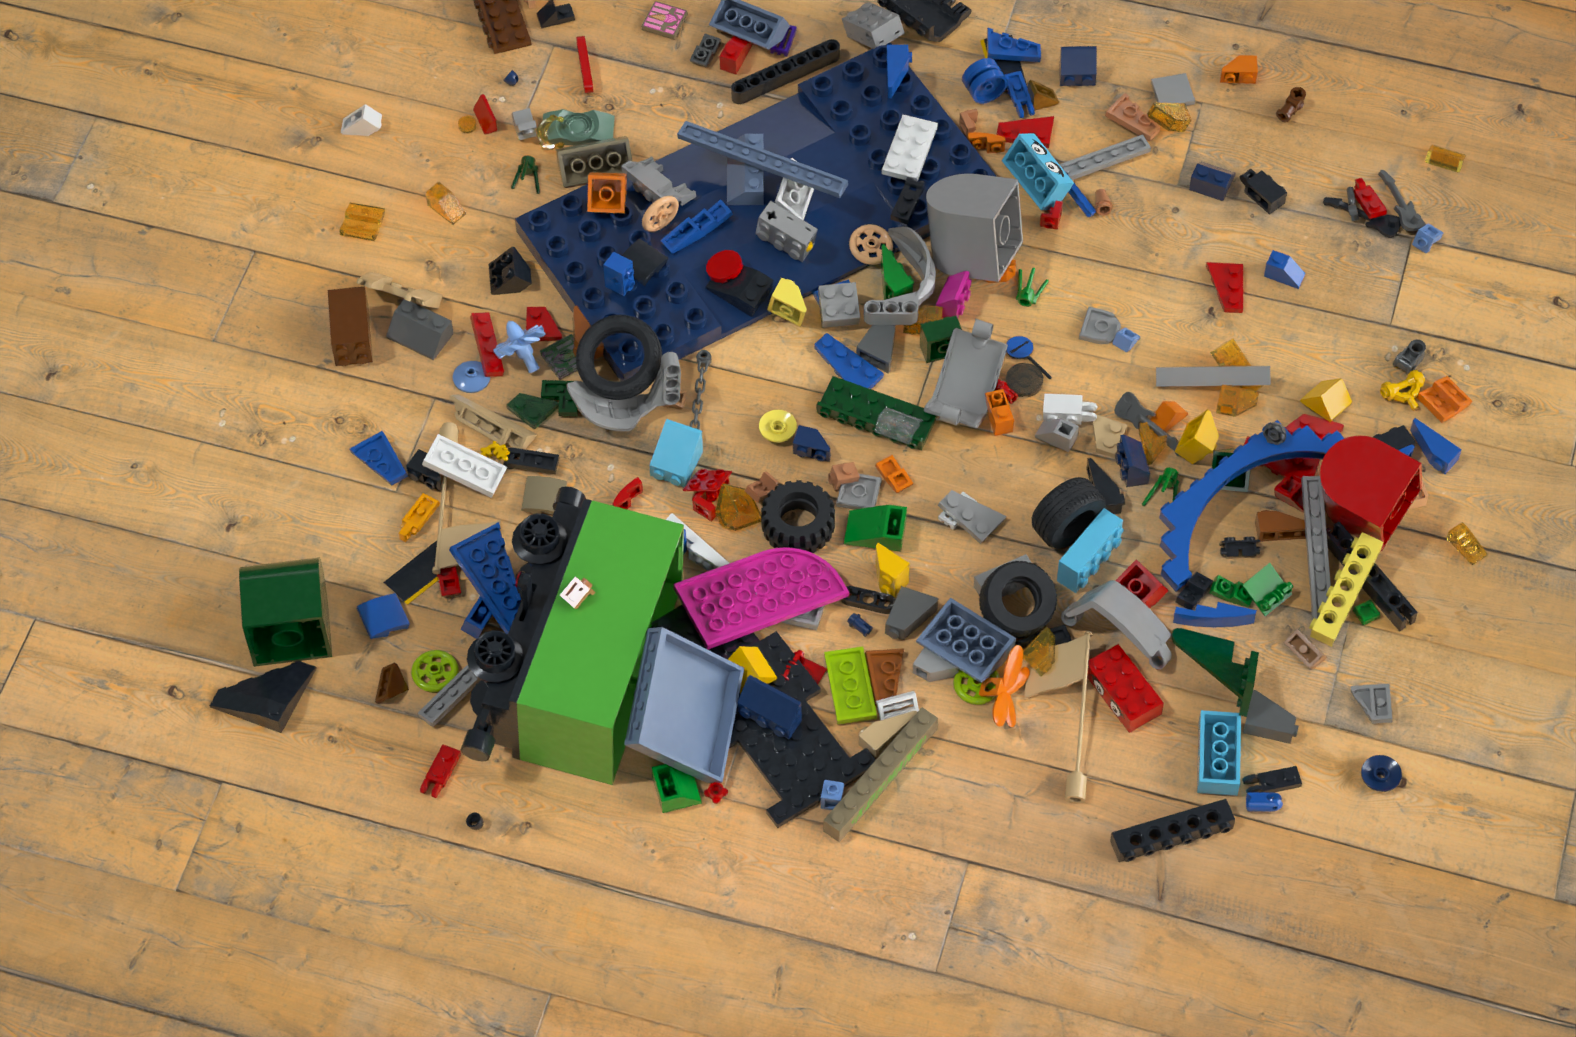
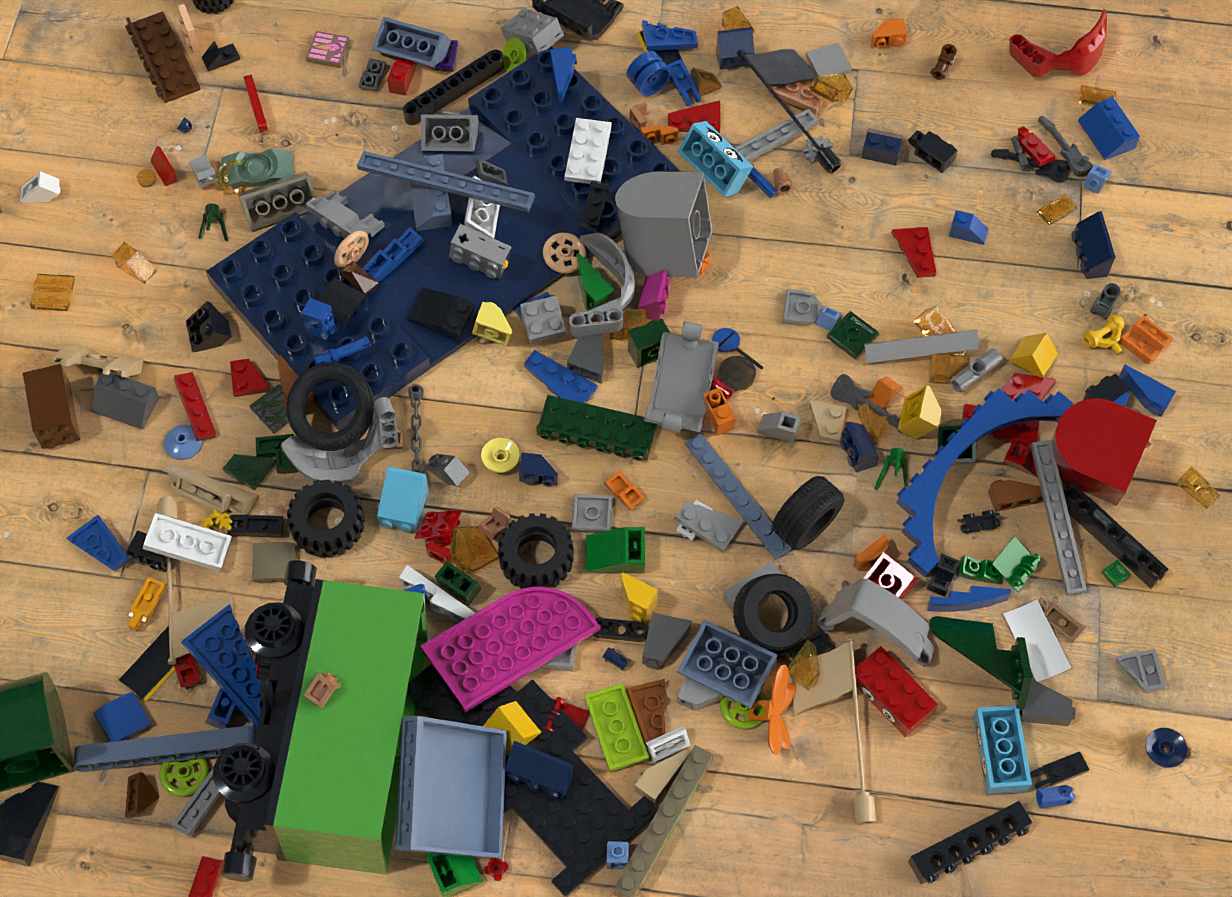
camera: 10 degrees left, 5 degrees up
(403, 645) = (159, 748): none -> sand blue beam
(520, 342) = (227, 401): light blue piece -> none
(595, 441) = (317, 497): none -> black tyre
(607, 192) = (294, 234): orange slope -> none
(631, 490) = (355, 554): red slope -> none
(640, 307) = (334, 355): none -> blue pin
(663, 242) = (358, 278): none -> reddish brown slope
(718, 535) = (458, 582): none -> dark green brick
(724, 266) = (423, 295): red tile -> none
(724, 432) = (447, 468): none -> dark grey slope
(774, 114) = (449, 132): none -> light grey slope
(809, 157) = (491, 173): none -> dark grey slope
(843, 474) = (574, 498): nougat bracket -> none
(851, 45) = (514, 53): none -> lime dish
(897, 425) = (620, 439): clear bracket -> none
(1004, 493) = (737, 495): none -> sand blue plate
(1026, 295) = (725, 286): green plant -> none
(1052, 220) = (736, 205): red bracket -> none
(1068, 408) = (785, 399): white hinge -> none
(1082, 37) = (734, 19): none -> clear yellow slope
(1090, 551) = (835, 547): medium azure brick -> none
(1105, 486) = (836, 475): black slope -> none
(1121, 563) = (870, 555): none -> orange slope
(1123, 92) = (786, 68): none -> black flag
(1138, 176) = (811, 150): none -> light grey animal
(1147, 356) = (852, 334): none -> dark green tile
(1257, 410) = (983, 364): none -> light grey piece
(1274, 433) = (1000, 403): dark grey plate -> none
(1276, 663) = (1043, 648): none -> white sticker
(1328, 632) = (1113, 510): light yellow brick -> none
(1379, 264) = (1057, 210): none -> clear yellow slope
(1407, 303) = (1093, 246): none -> dark blue slope
(1434, 116) = (1079, 58): none -> red piece
(1450, 191) = (1109, 129): none -> blue slope

